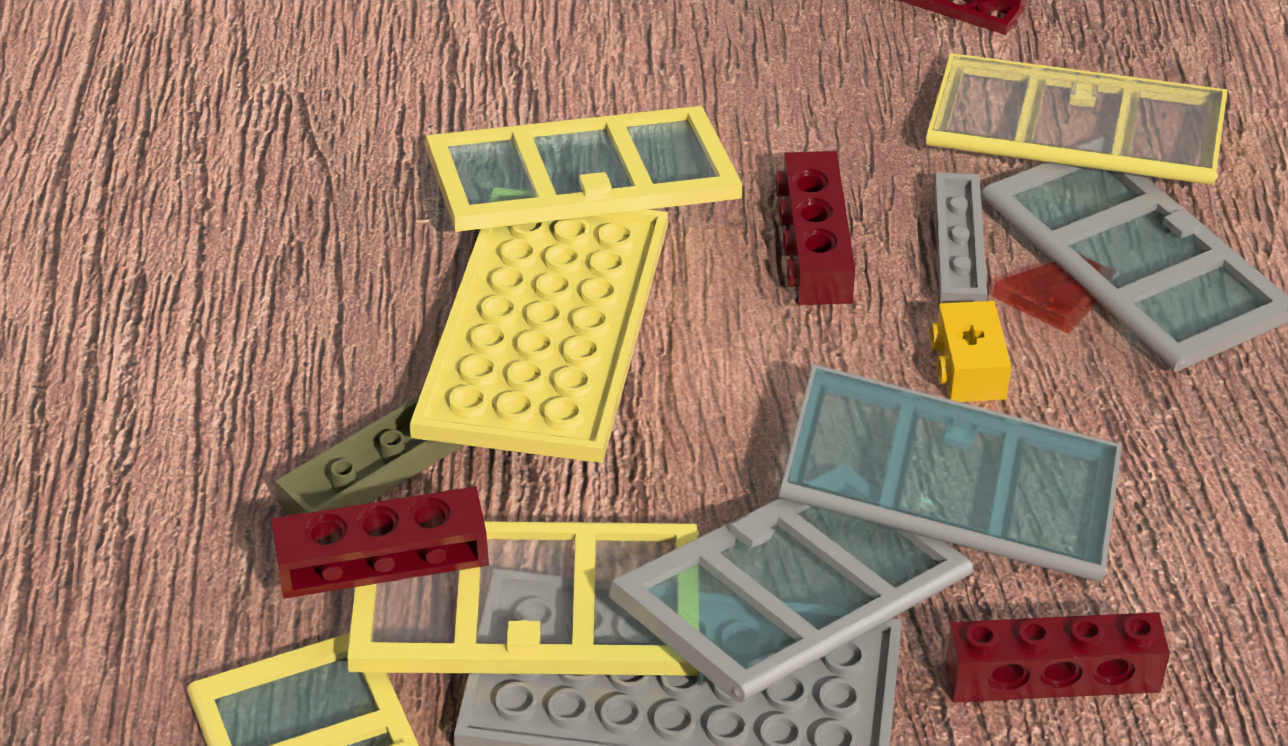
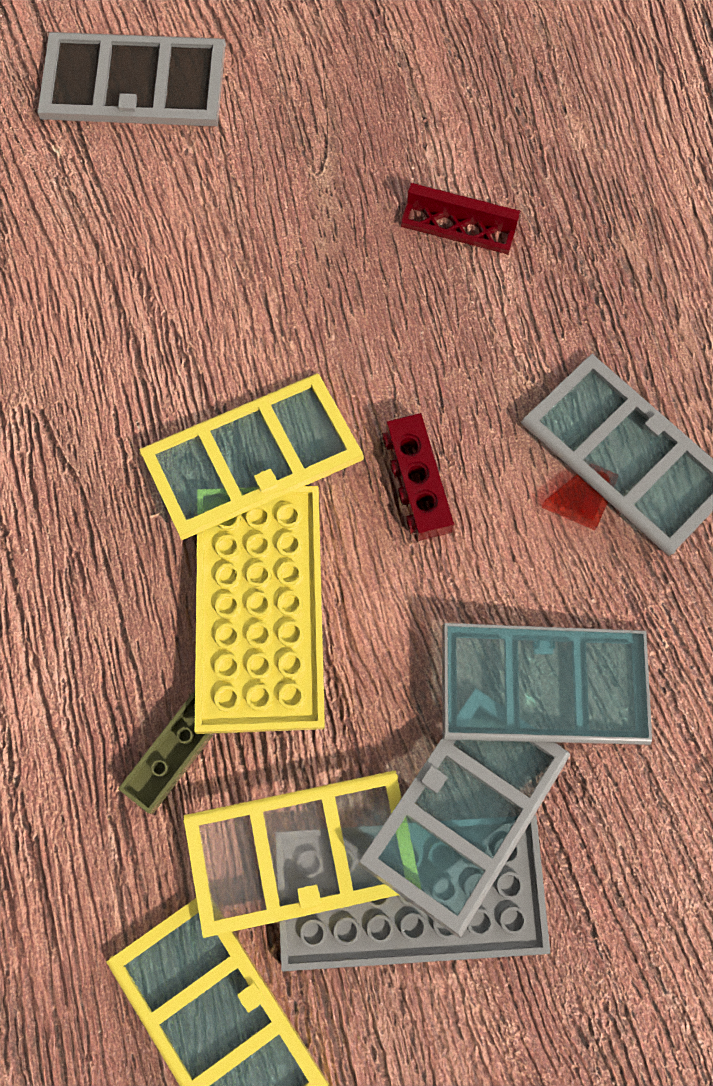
camera: 10 degrees left, 30 degrees up
(380, 542) = (154, 877): dark red brick -> none
(959, 238) = (513, 467): light grey plate -> none
(971, 351) = (541, 554): yellow brick -> none
(1056, 657) = (636, 825): dark red brick -> none
(1079, 118) = (574, 338): clear door -> none

